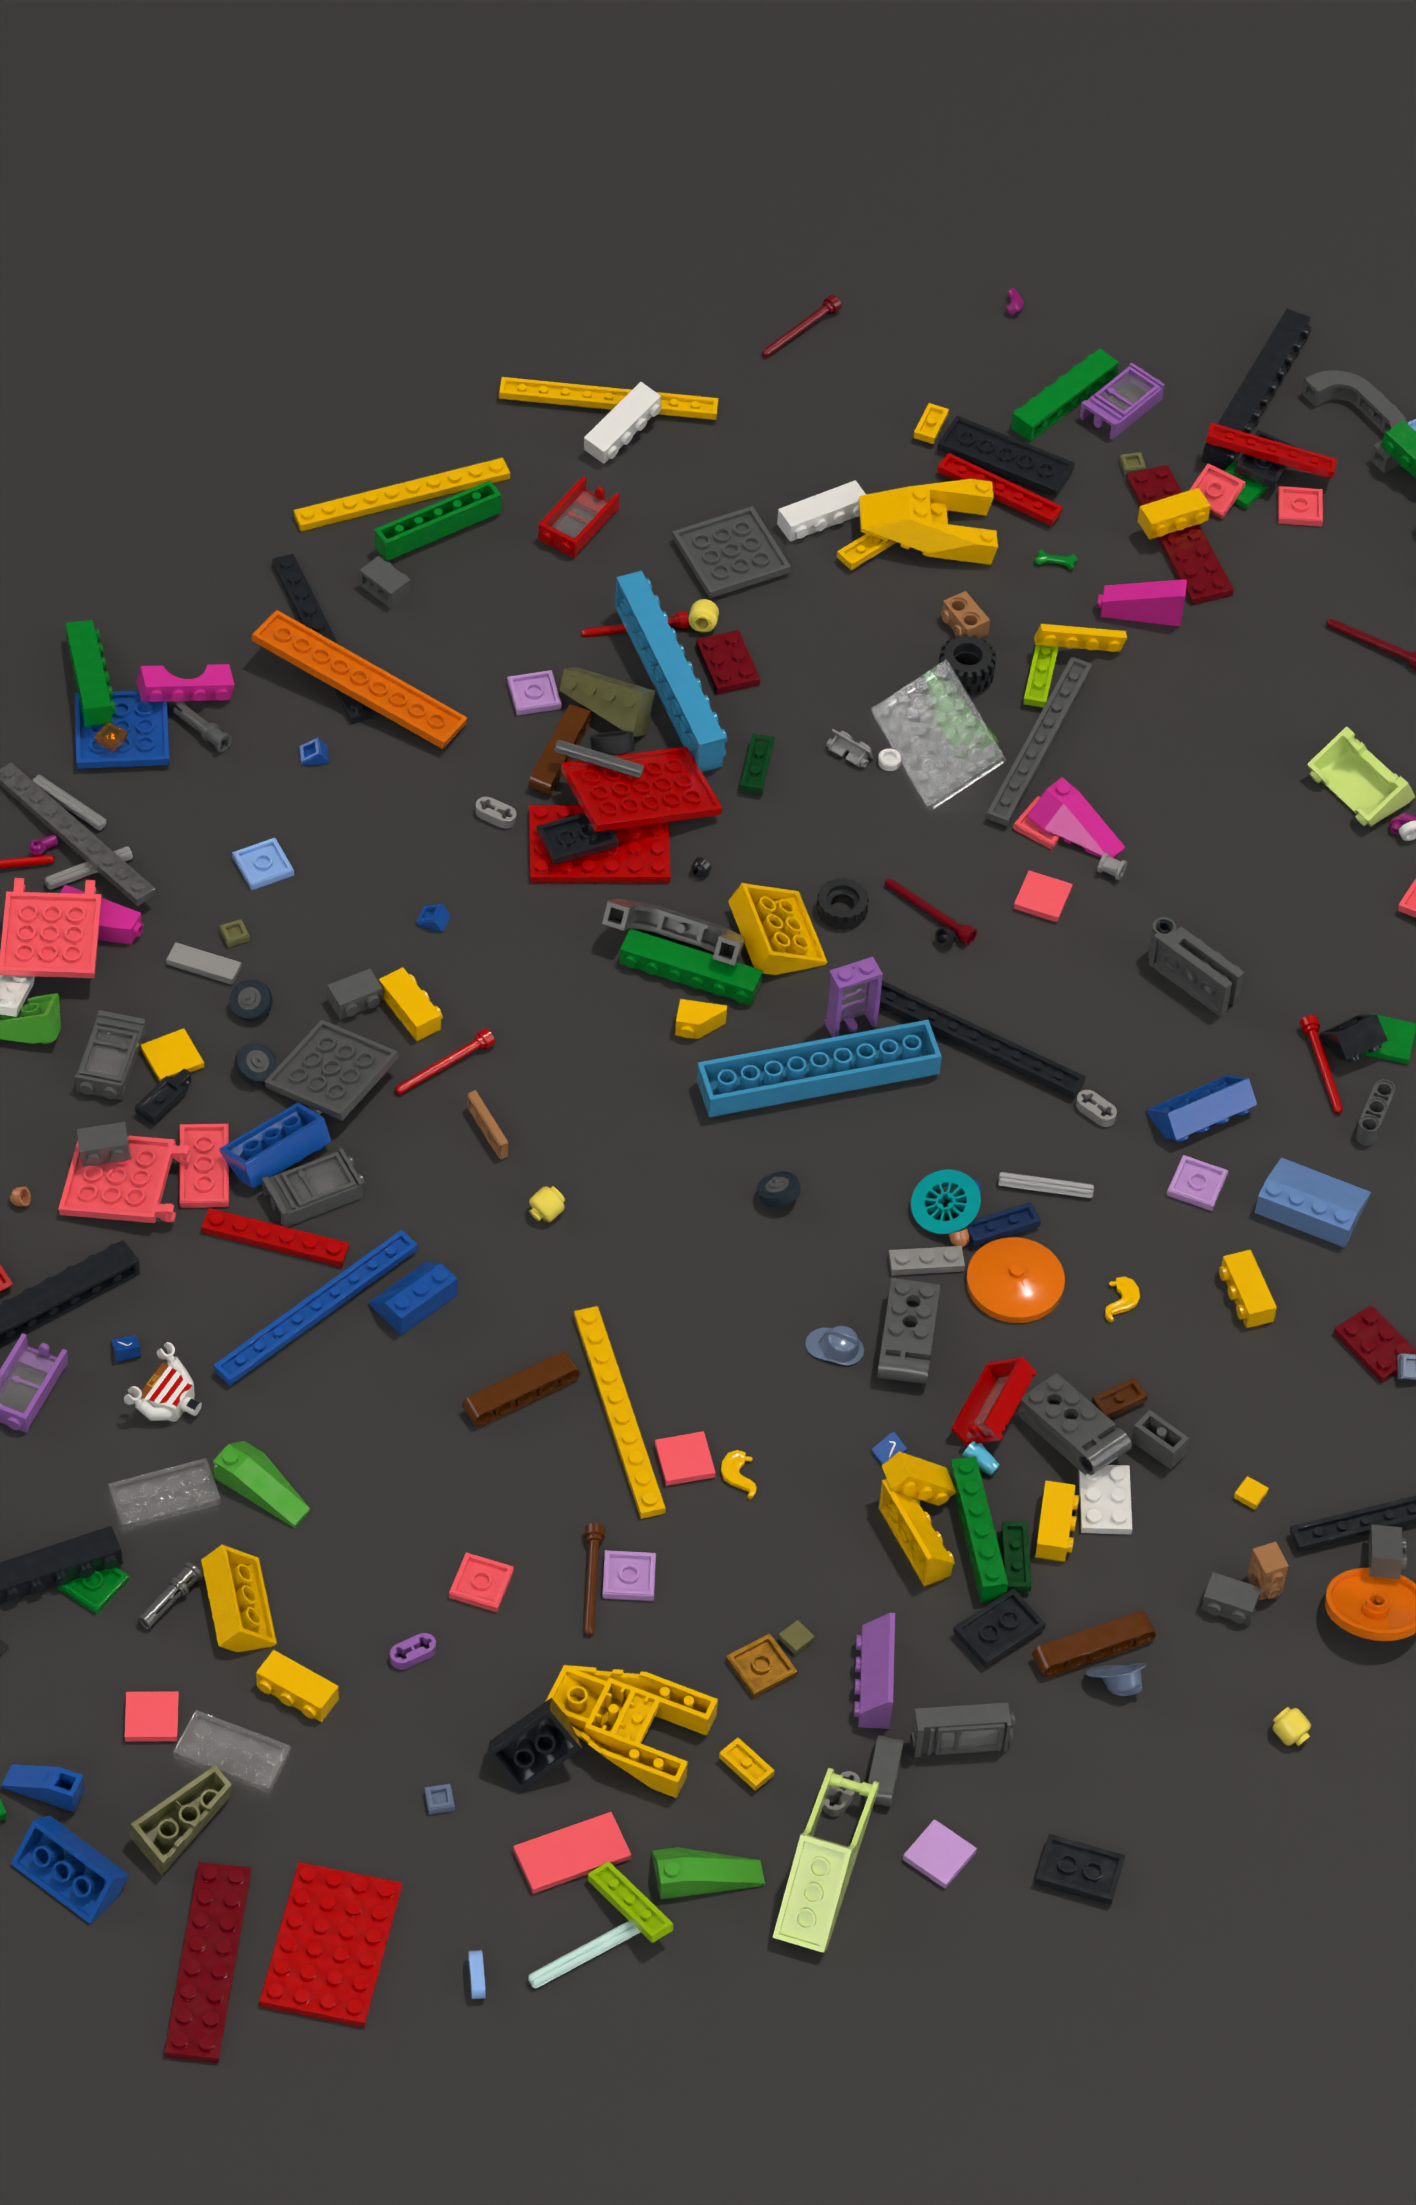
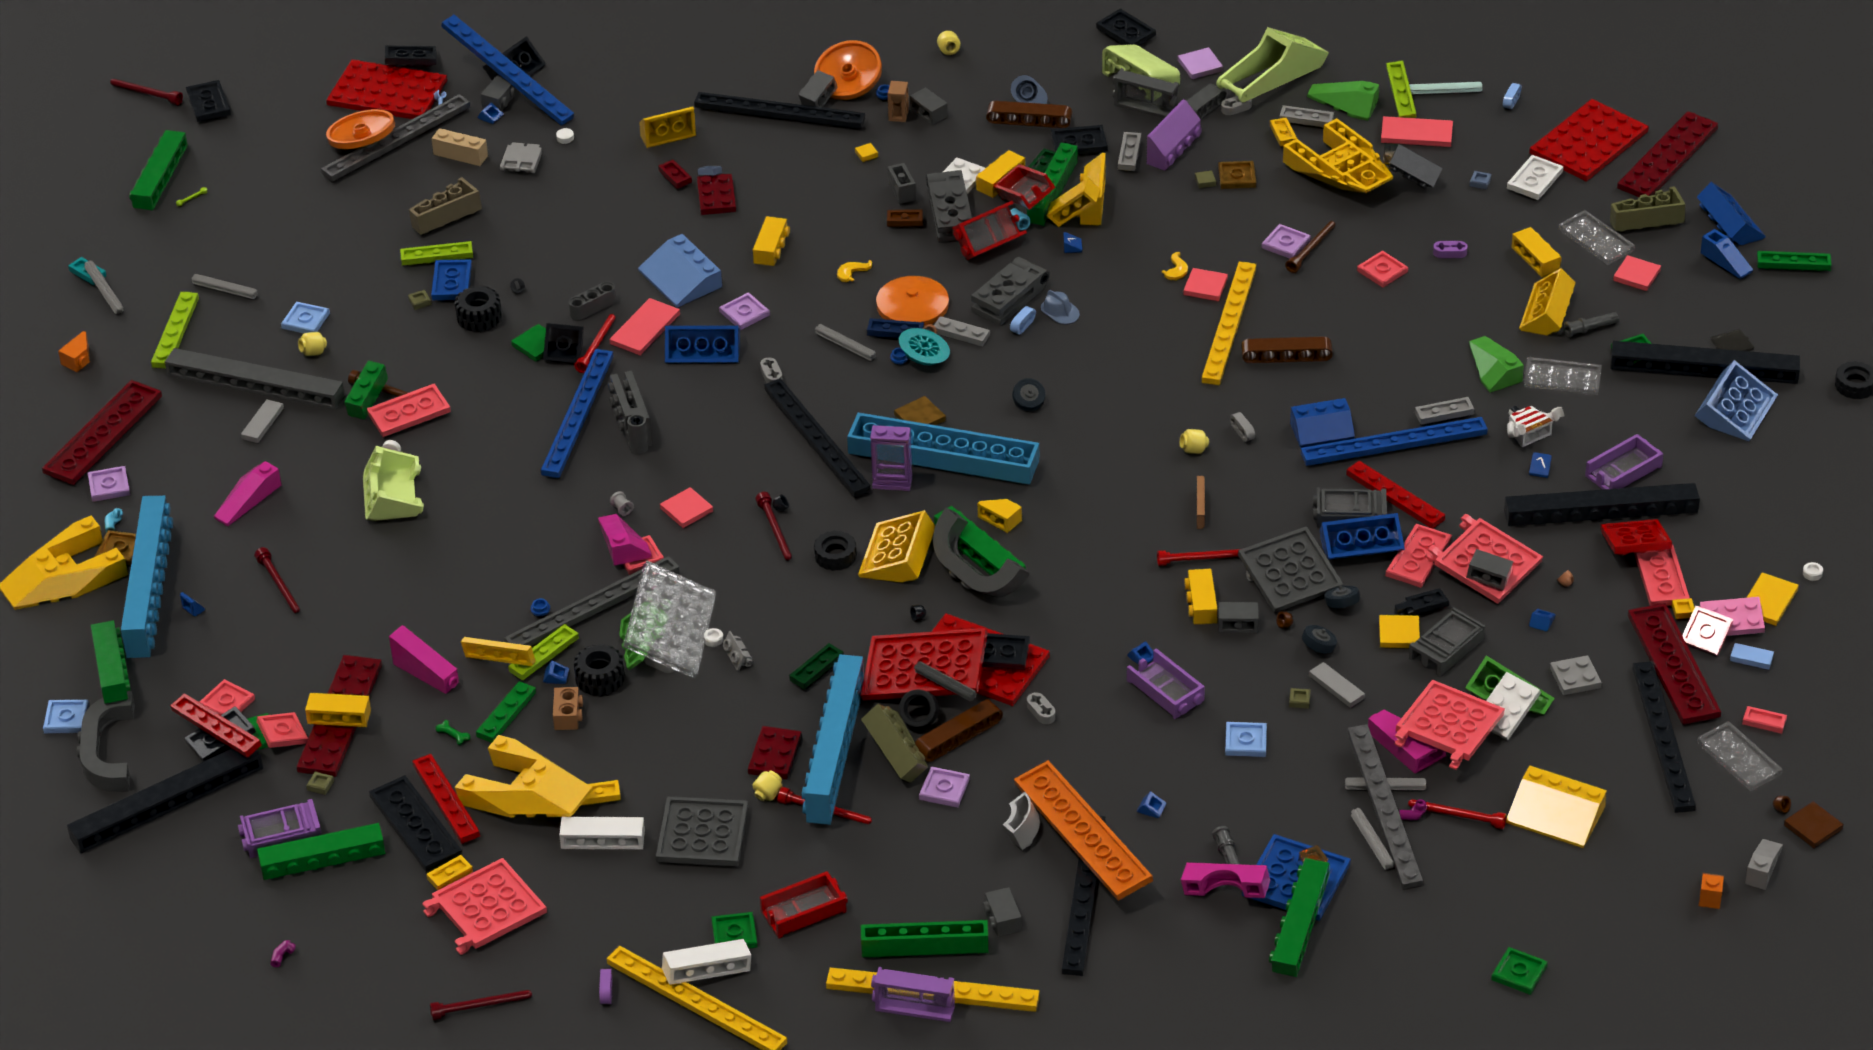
camera: 145 degrees left, 10 degrees down
(22, 1138) = (1541, 619): none -> blue slope
(281, 1378) = (1444, 410): none -> light grey plate
(303, 1016) = (1284, 619): none -> reddish brown hinge
(366, 1828) = (1535, 177): none -> white plate
(382, 883) = (1167, 684): none -> medium lavender door
(408, 459) = (913, 994): none -> medium lavender door
(424, 669) = (1023, 821): none -> light grey brick
(505, 1251) = (1242, 426): none -> light grey beam
(626, 476) = (735, 927): none -> green tile
(699, 378) = (605, 986): none -> medium lavender beam
(732, 1807) = (1306, 116): none -> light grey plate
(863, 1299) = (1022, 320): none -> light blue beam
(870, 409) = (486, 904): none -> coral plate
(885, 1120) = (920, 411): none -> pearl gold tile
(922, 1637) = (1129, 151): none -> light grey plate
(997, 1474) = (1024, 186): none -> red door
(1005, 1780) = (1137, 60): none -> yellowish green windscreen
(1011, 658) = (555, 673): none -> blue slope
(1024, 600) = (506, 712): none -> green plate
(1090, 718) = (540, 607): none -> blue plate
(1259, 961) = (577, 413): none -> blue plate
(1290, 1111) = (644, 326): none -> coral tile
(1307, 1605) = (882, 92): none -> blue plate

